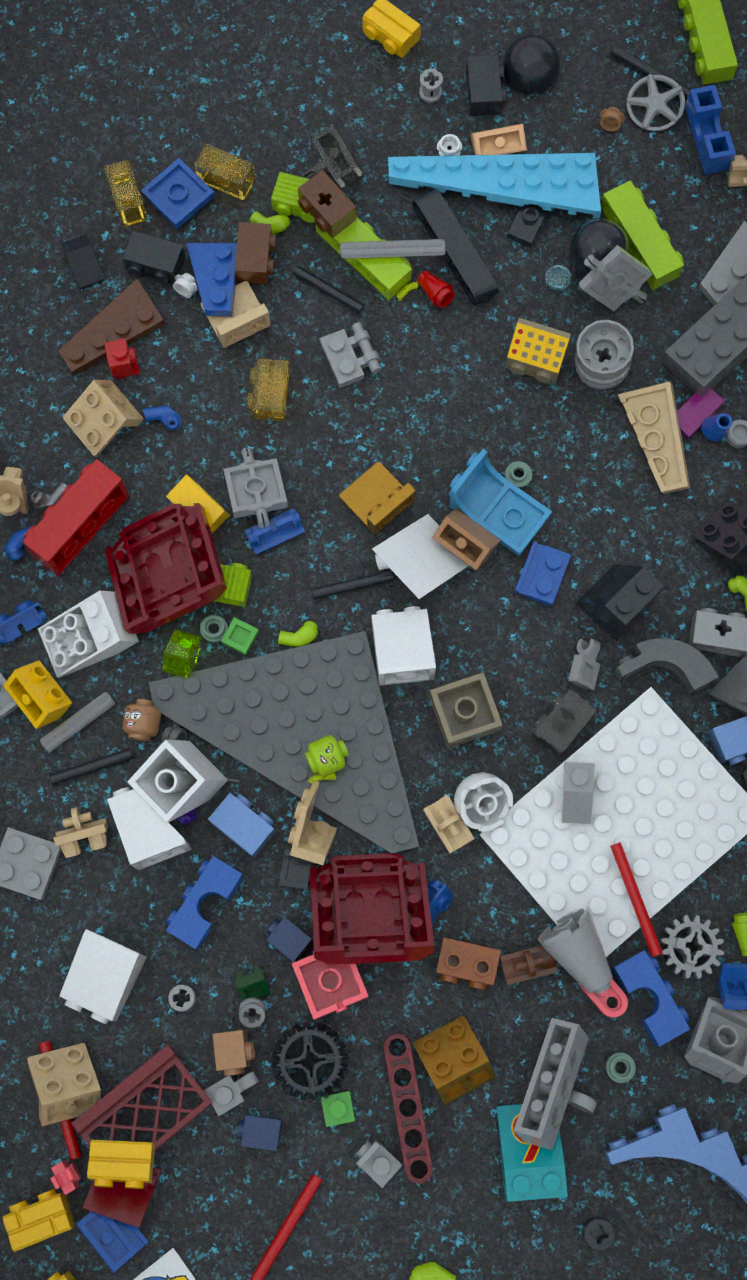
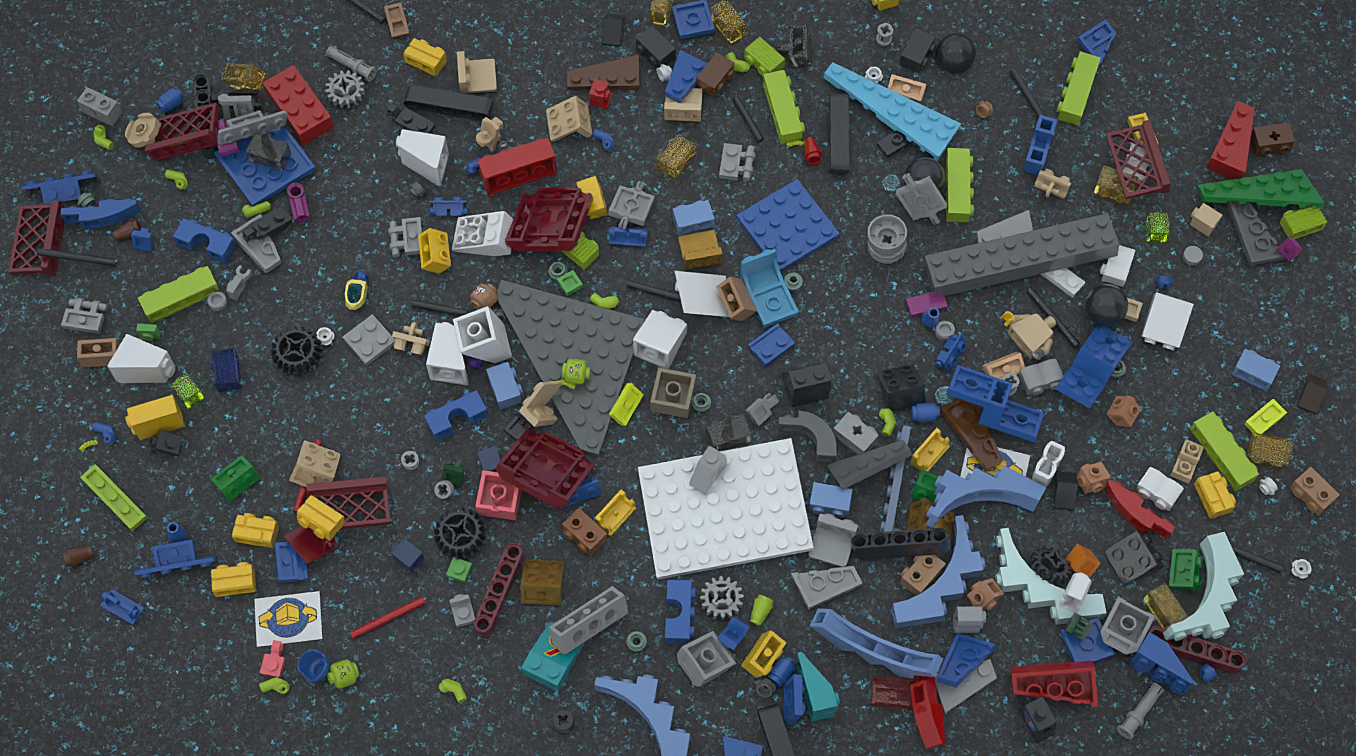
camera: 30 degrees right, 10 degrees down
(66, 1176) = (285, 515): coral plate -> none
(77, 722) = (447, 279): light grey axle -> none
(101, 977) = (373, 420): white slope -> none
(181, 653) = (529, 272): clear neon green brick -> none
(227, 1093) = (402, 526): light grey plate -> none
(233, 1051) = (419, 500): medium nougat brick -> none
(327, 204) = (774, 67): reddish brown brick -> none
(342, 459) = (693, 217): none -> medium blue brick
(392, 248) = (797, 113): light grey axle -> none
(413, 759) = (626, 404): none -> neon yellow plate
(448, 824) = (622, 450): tan hips -> none
(464, 402) = (789, 223): none -> blue plate
(483, 801) = (647, 453): white cylinder -> none
(490, 914) = (615, 513): none -> yellow hinge
(510, 695) = (701, 397): none -> sand green plate
(527, 965) = (619, 551): reddish brown hips -> none
(537, 351) = (848, 216): slope -> none
(579, 950) = (651, 557): light grey cone -> none
(582, 1102) = (600, 645): light grey tile -> none
(600, 1000) = (653, 593): coral plate -> none
(636, 899) = (704, 549): red bar -> none
(655, 102) = (1018, 114): light grey wheel -> none
(658, 431) = (895, 296): tan wing -> none

